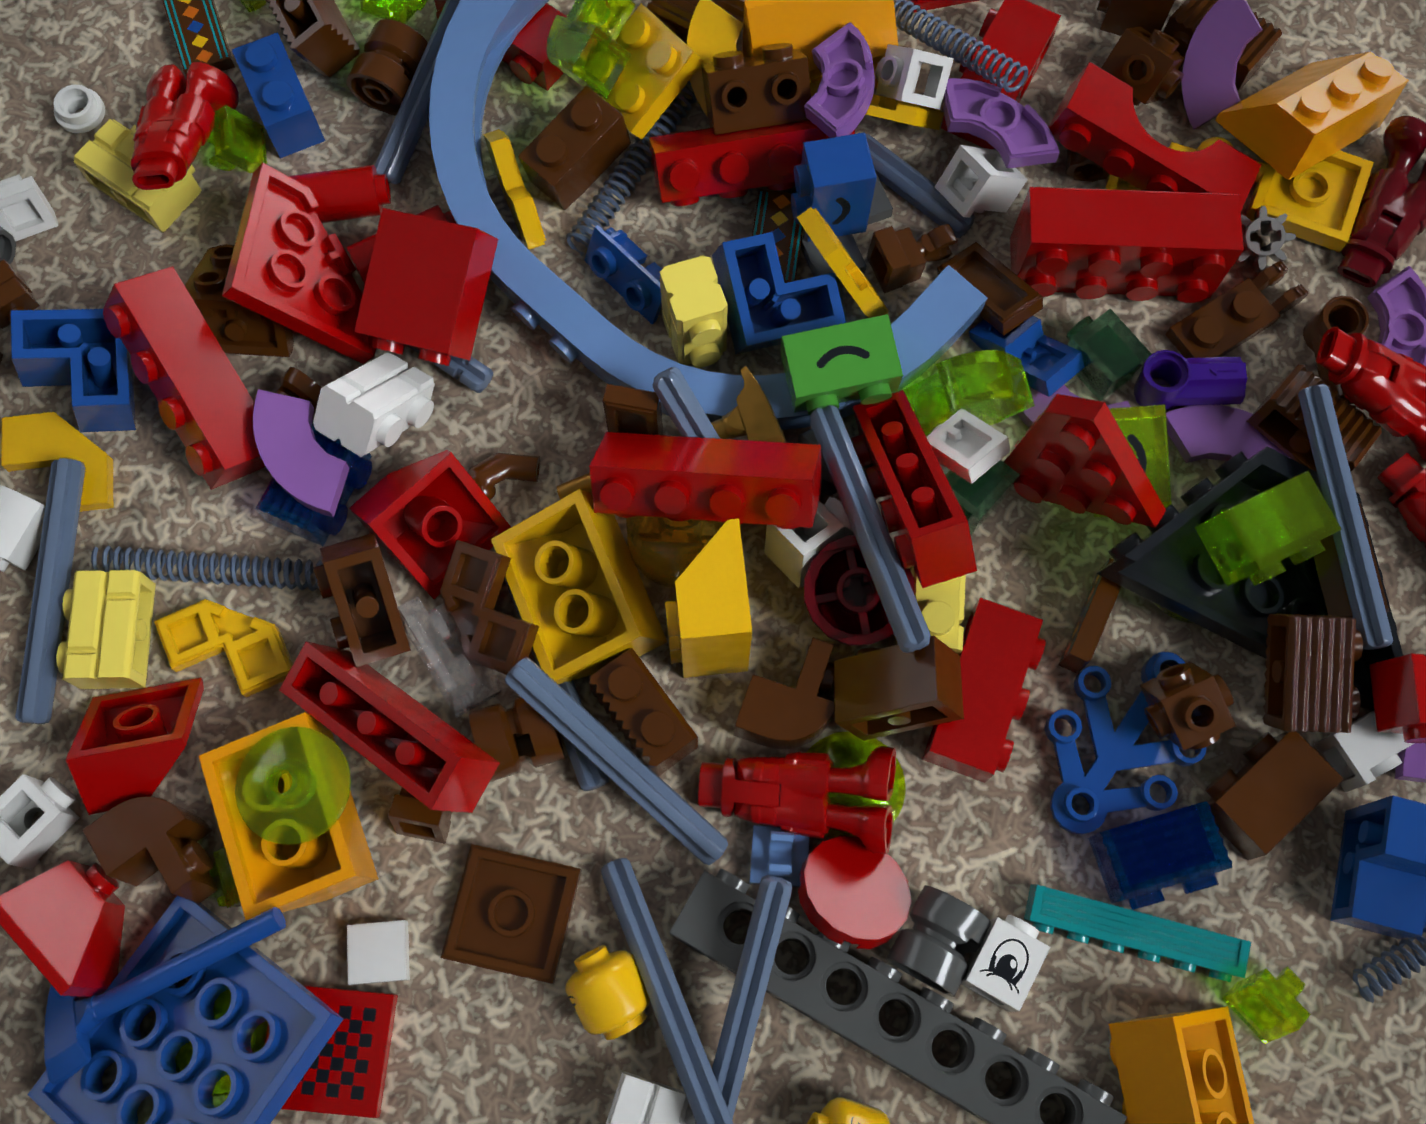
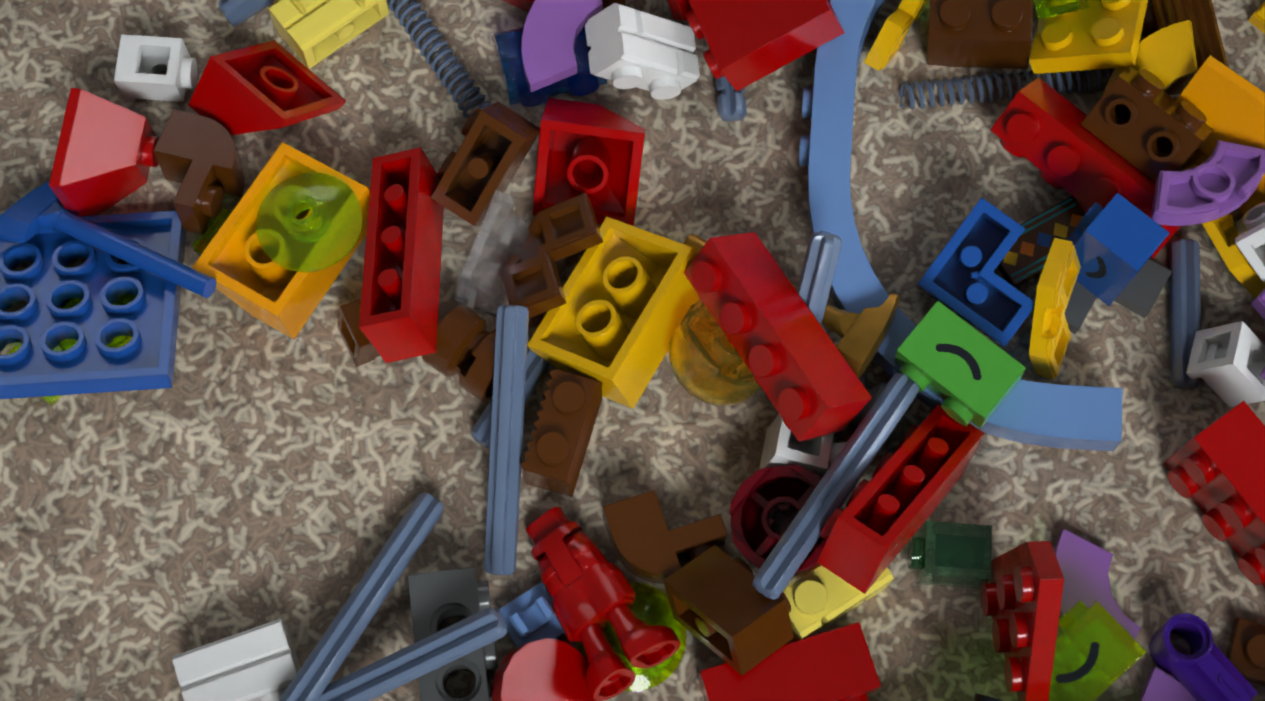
camera: 50 degrees right, 0 degrees up
(208, 629) = (384, 77): yellow tile -> none
(353, 1064) = (154, 421): red tile -> none
(378, 952) = (242, 381): white tile -> none
(502, 467) = (672, 180): reddish brown arm -> none
(511, 914) = (340, 454): reddish brown tile -> none
(608, 992) = (331, 565): yellow head -> none
(619, 264) = (915, 132): blue hinge -> none
(632, 410) = (787, 241): reddish brown tile -> none
(694, 311) = (914, 223): light yellow brick -> none
(711, 611) = (677, 415): yellow slope -> none
(901, 259) = (1109, 349): reddish brown piece -> none
(967, 445) = (974, 516): white bracket -> none
(981, 382) = (1037, 488): clear neon green brick -> none
(1009, 297) = (1147, 442): reddish brown tile -> none
(1045, 360) = (1114, 511): blue slope -> none
(1109, 353) = (1164, 576): clear green brick -> none

